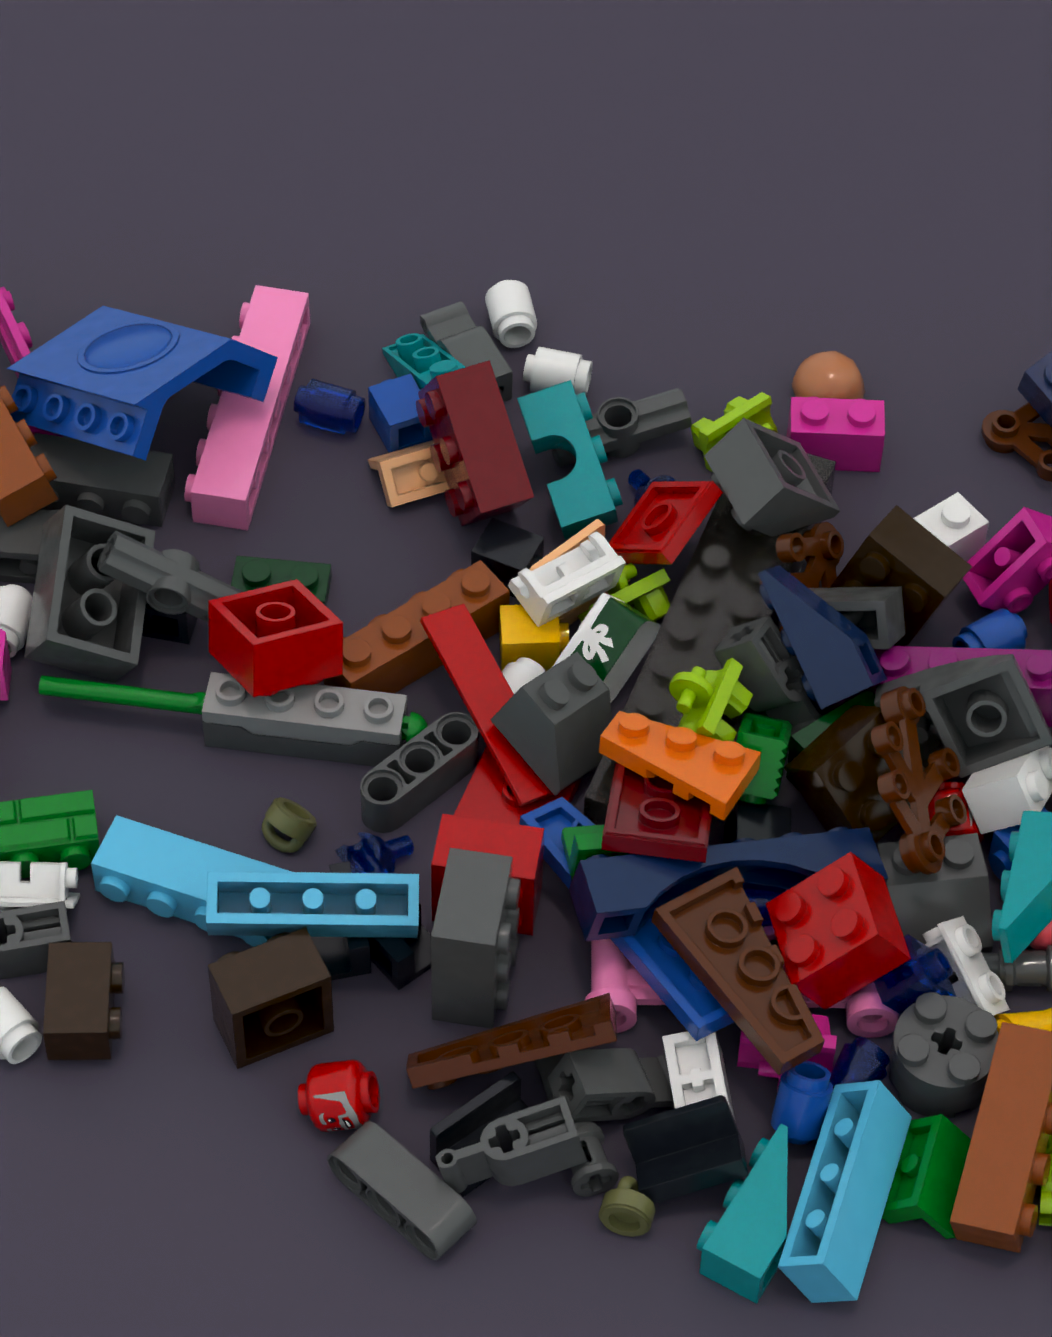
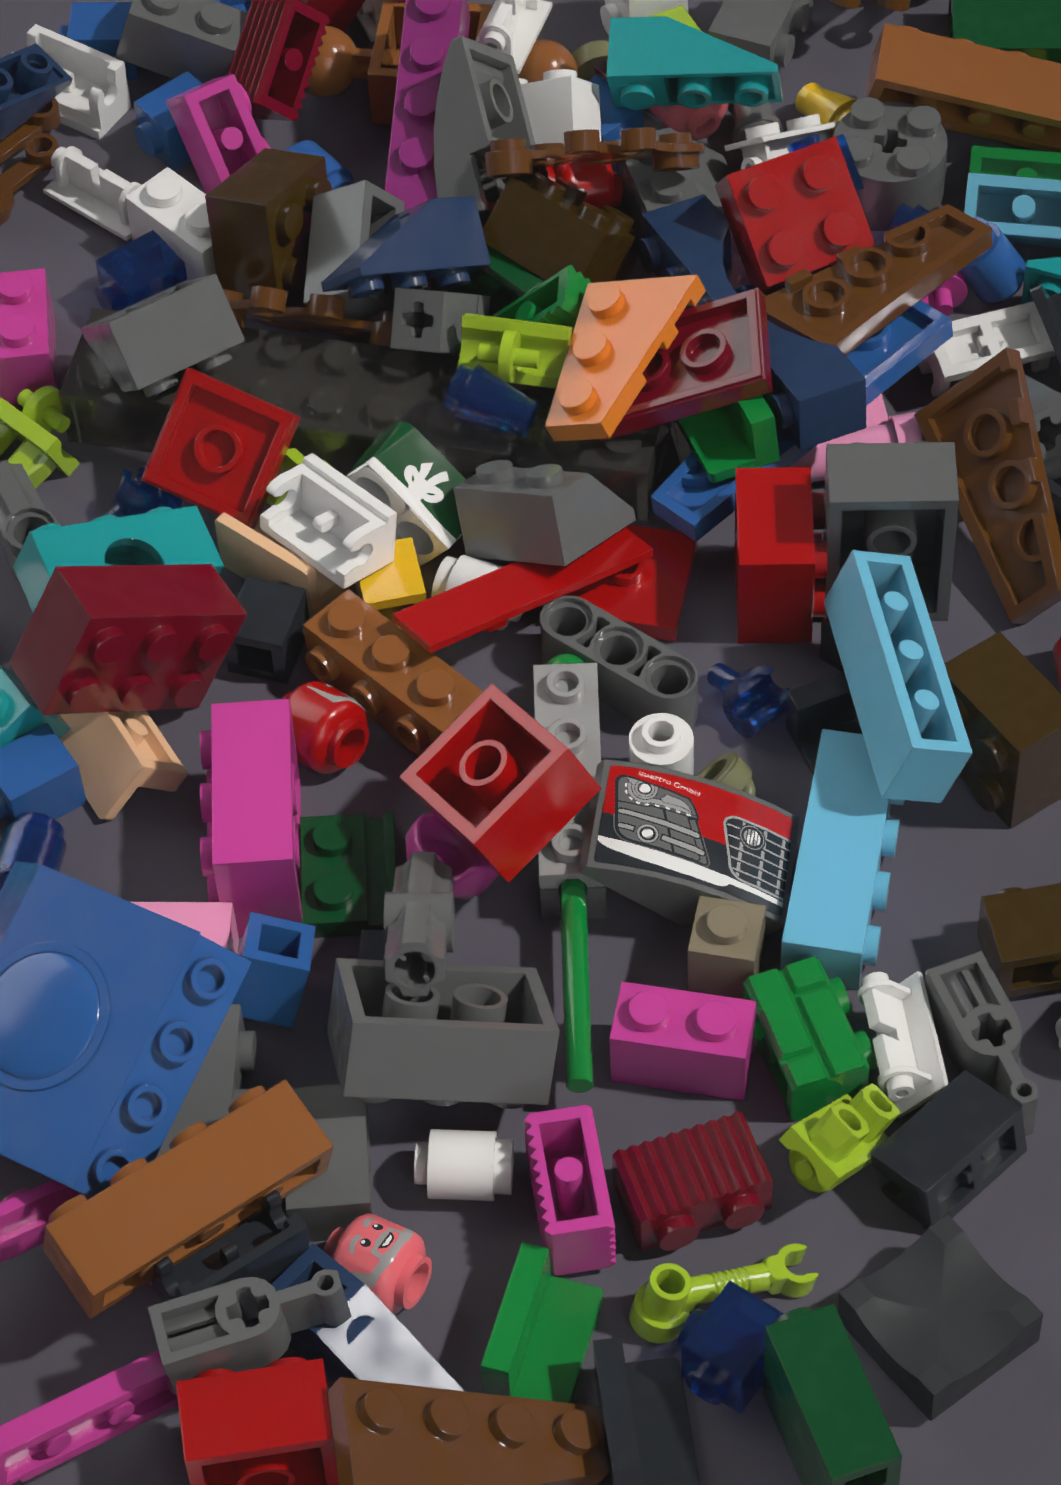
camera: 95 degrees left, 0 degrees up
(64, 748) = (682, 1041): none -> dark pink brick
(133, 790) = (725, 946): none -> dark tan brick
(188, 521) = (278, 969): none -> blue brick
(219, 770) = (685, 837): none -> slope
(316, 517) = (252, 810): none -> dark pink brick
(316, 778) = (662, 742): none -> white brick
(401, 575) = (327, 727): none -> red head
(653, 681) = (489, 402): none -> clear blue cone
(878, 498) = (137, 272): none -> clear blue brick
(1008, 495) = (91, 191): none -> white hinge

